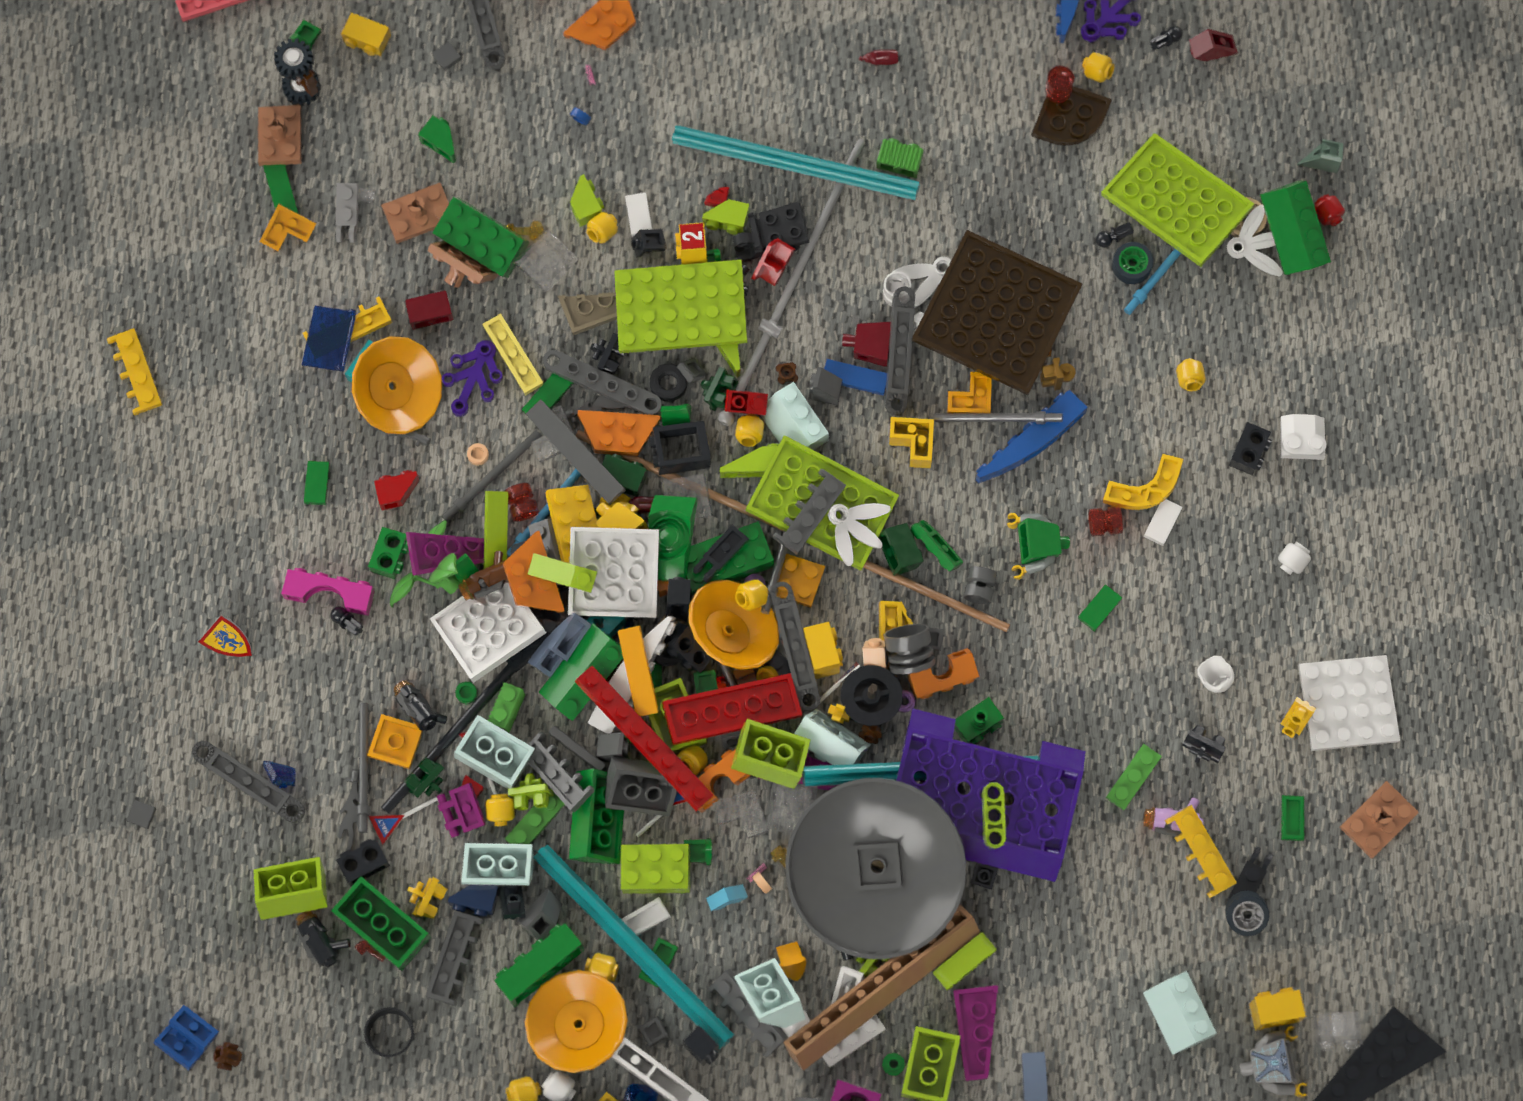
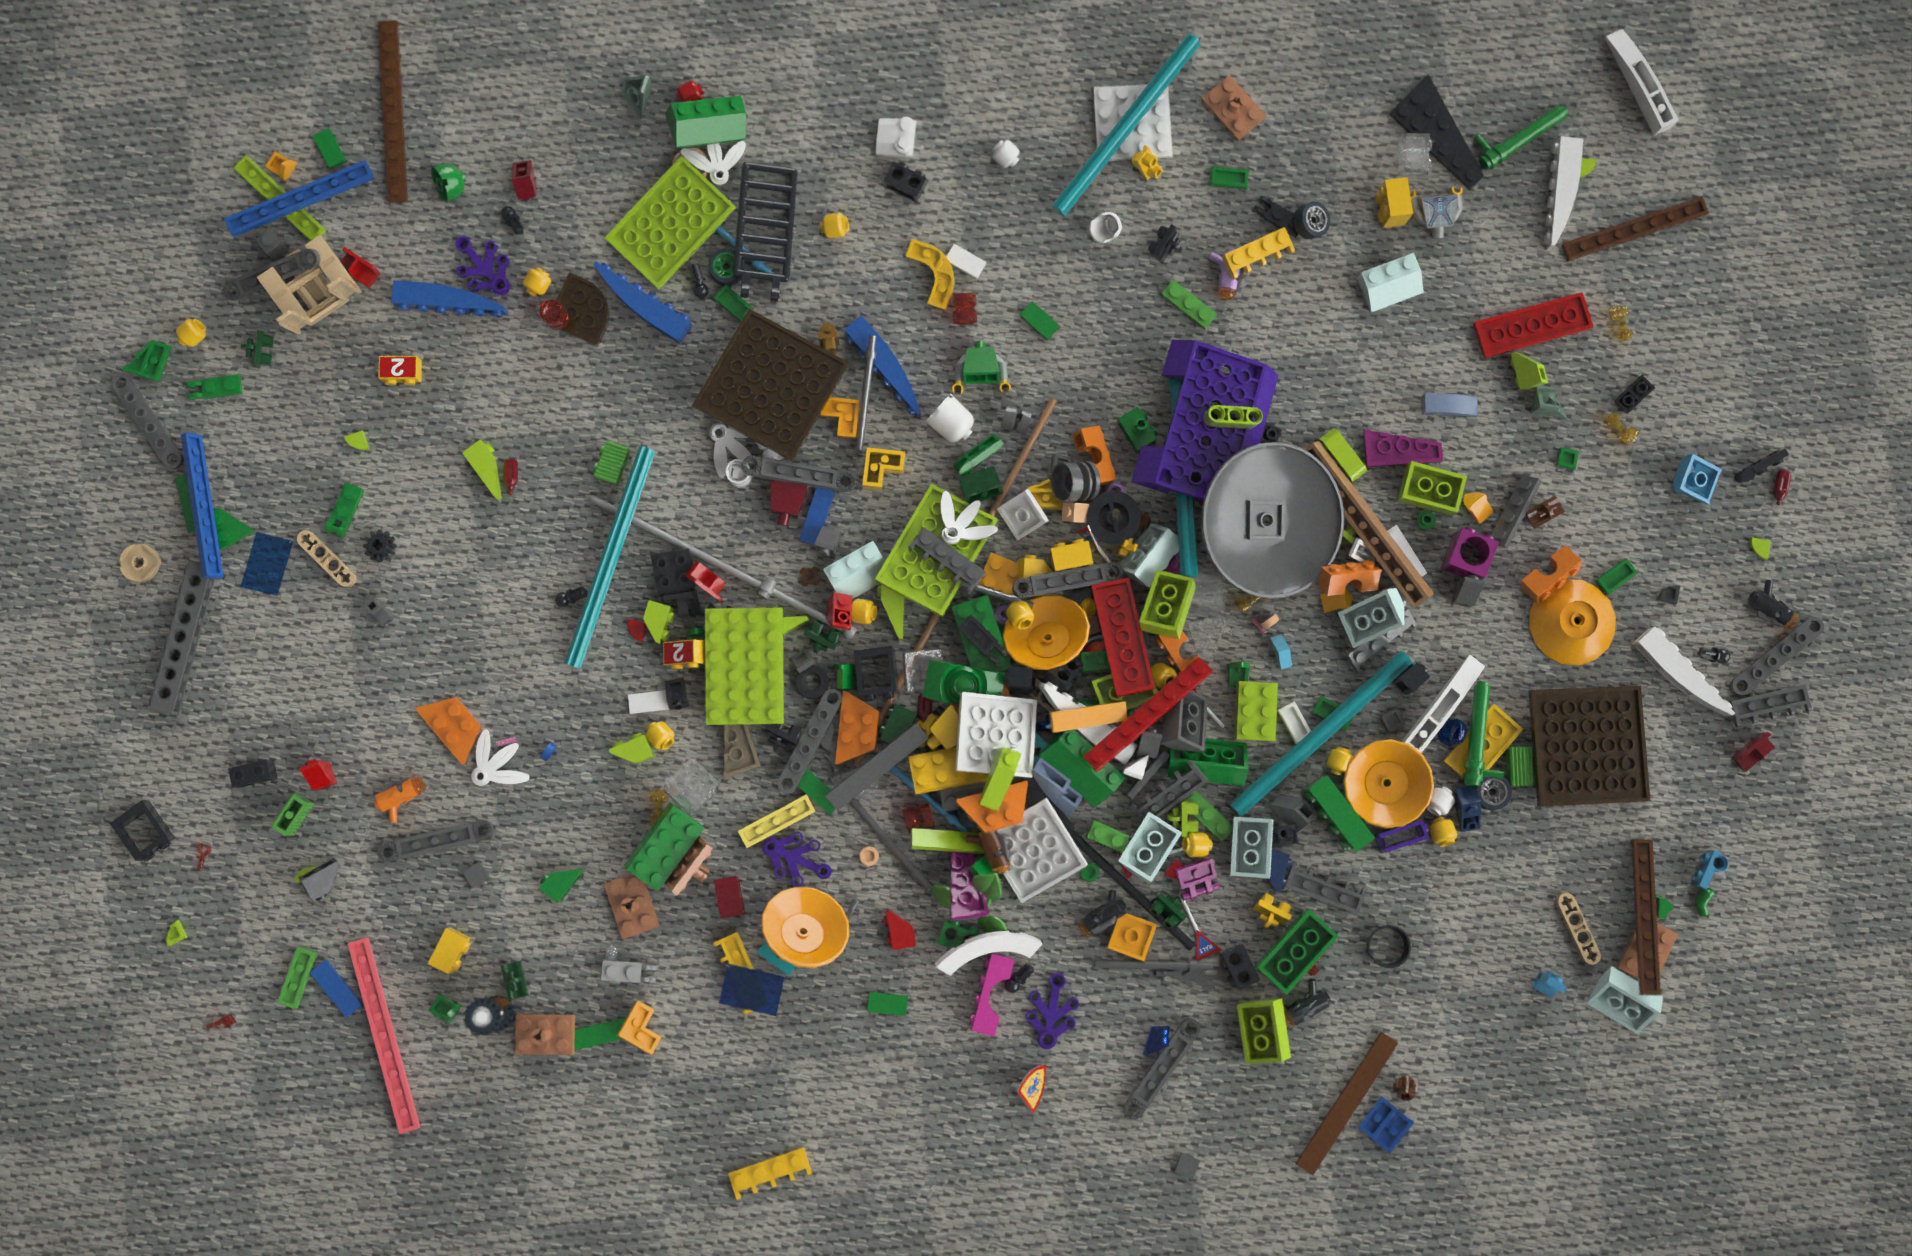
camera: 90 degrees left, 10 degrees up
(211, 992) = (1346, 1103): none -> reddish brown tile
(308, 658) = (1051, 1014): none -> dark purple plant
(335, 99) = (514, 980): none -> dark green hips
(382, 578) = (987, 943): none -> white tile
(517, 1044) = (1401, 836): none -> dark purple window
(561, 59) = (490, 767): none -> white plant
(583, 733) = (1136, 767): none -> white slope
(750, 127) = (571, 596): none -> black axle
(808, 608) = (1031, 566): none -> yellow slope
(816, 951) = (1363, 576): none -> orange arch
(869, 596) = (1022, 514): none -> white plate
(888, 30) = (484, 462): none -> lime slope
(973, 512) = (951, 420): none -> white cylinder
(1080, 181) = (646, 306): none -> blue slope
(1093, 272) = (732, 302): none -> green tile
(1187, 273) = (788, 224): none -> black bar
(1342, 690) = (1126, 125): none -> teal axle

